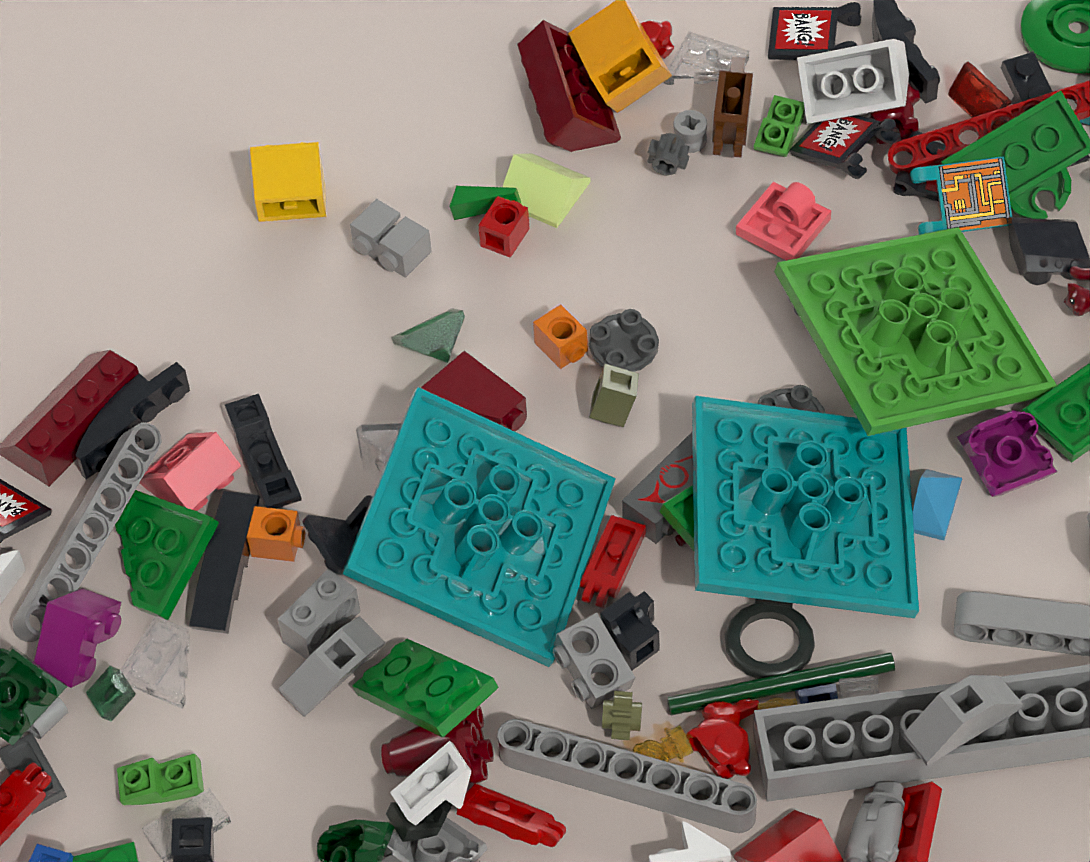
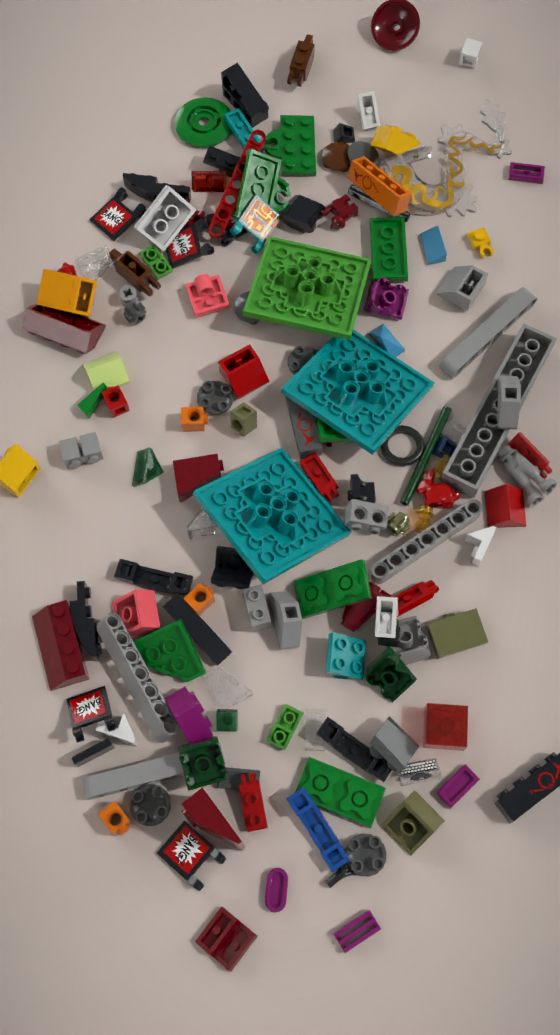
camera: 55 degrees left, 15 degrees up
(333, 783) = (345, 657): none -> teal plate
(695, 344) = (243, 371): none -> red slope

